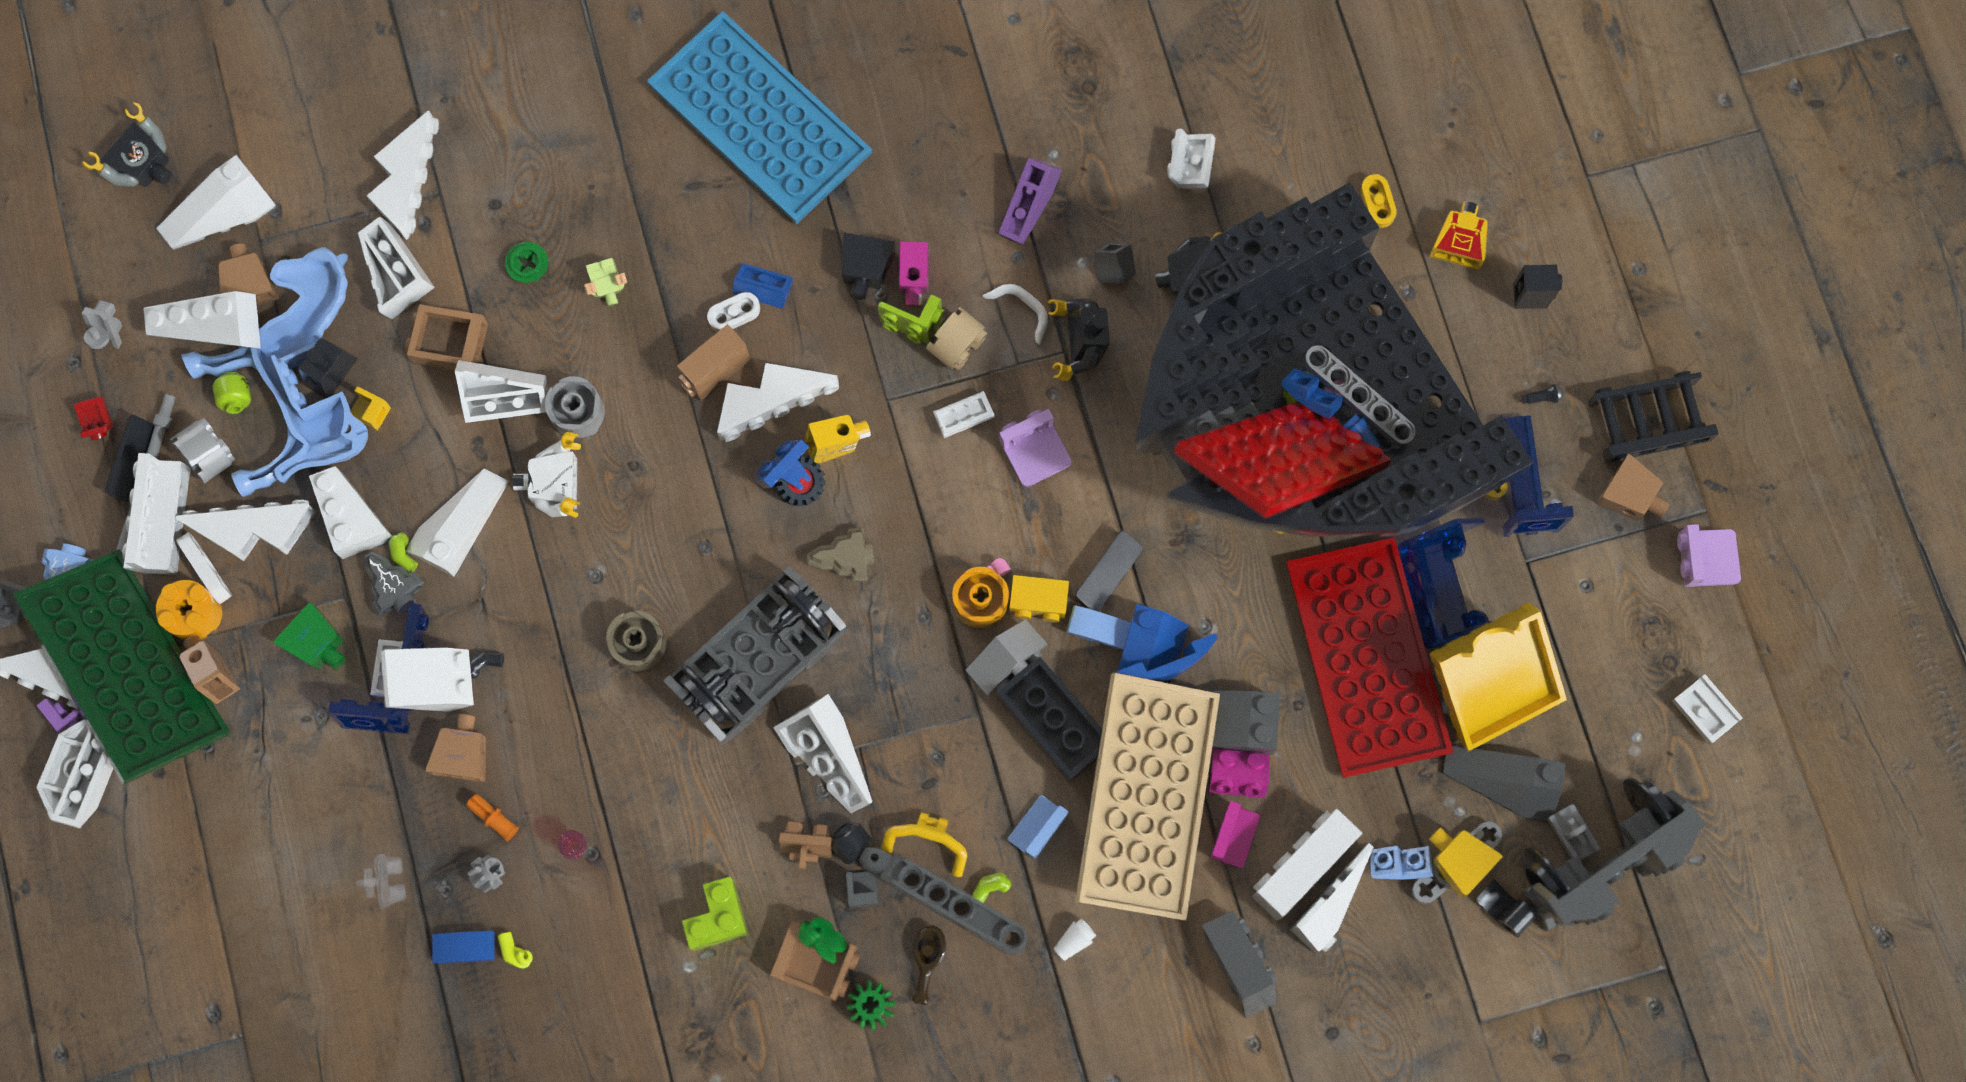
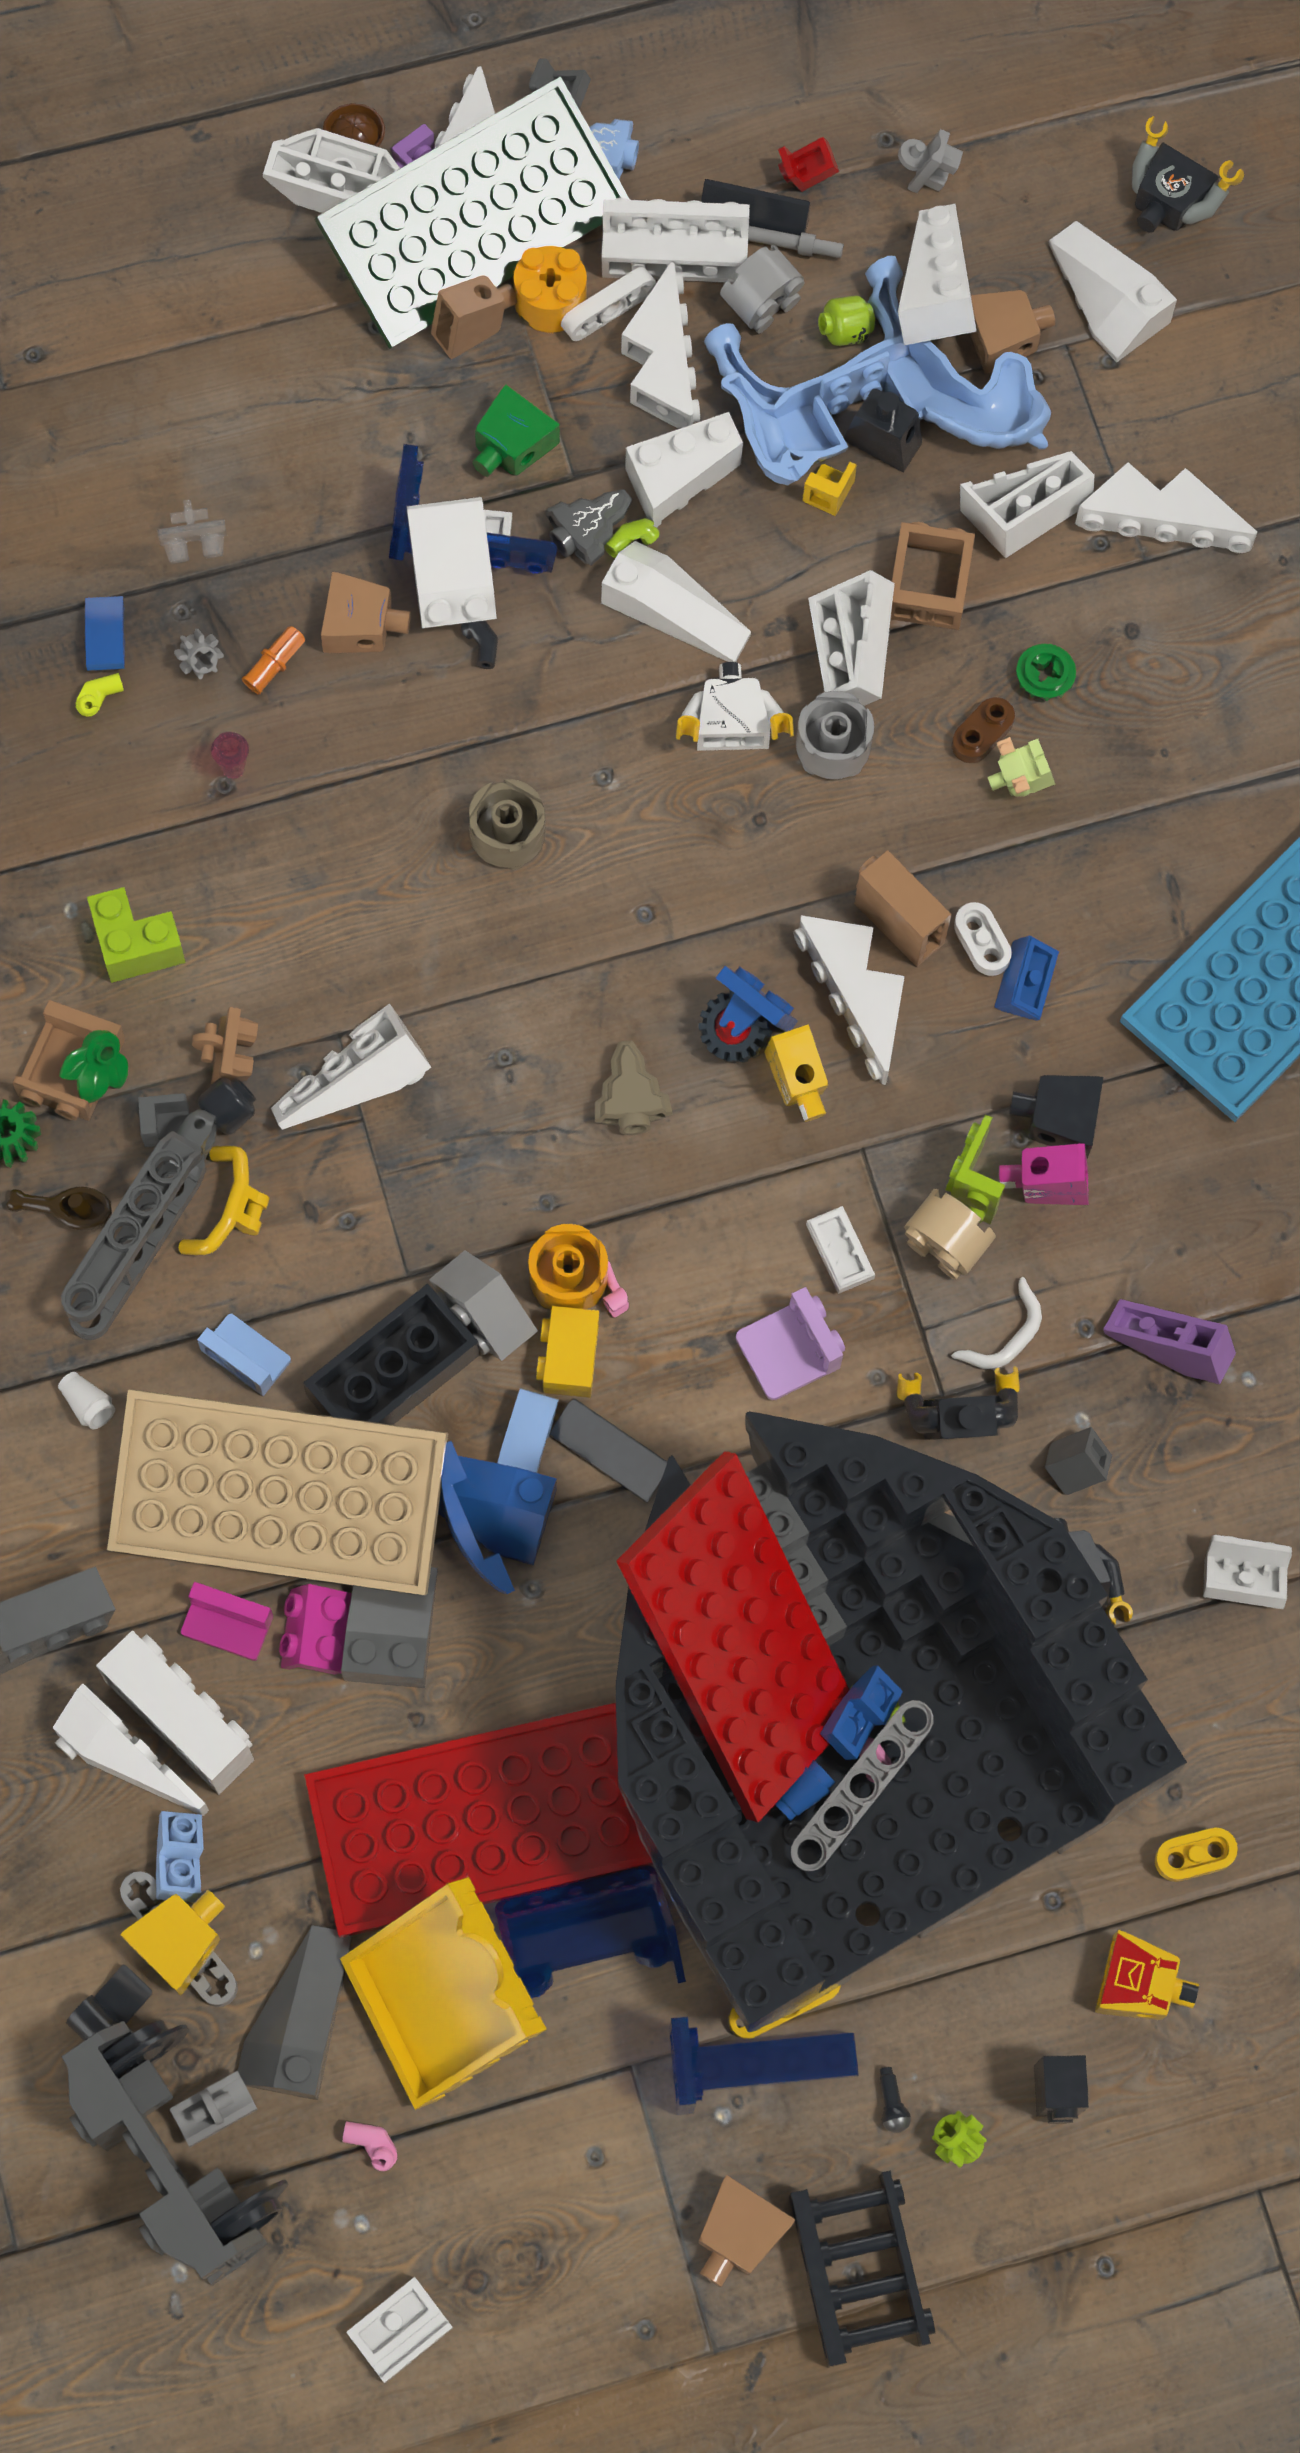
camera: 85 degrees right, 5 degrees down
(29, 762) = (356, 123): none -> reddish brown hat
(569, 307) = (985, 728): none -> reddish brown plate
(756, 655) = (481, 970): dark grey piece -> none
(991, 883) = (167, 1289): lime arm -> none
(1569, 345) = (959, 2139): none -> lime gear
(1585, 727) = (376, 2142): none -> bright pink arm
(1708, 557) = (637, 2346): lavender bracket -> none

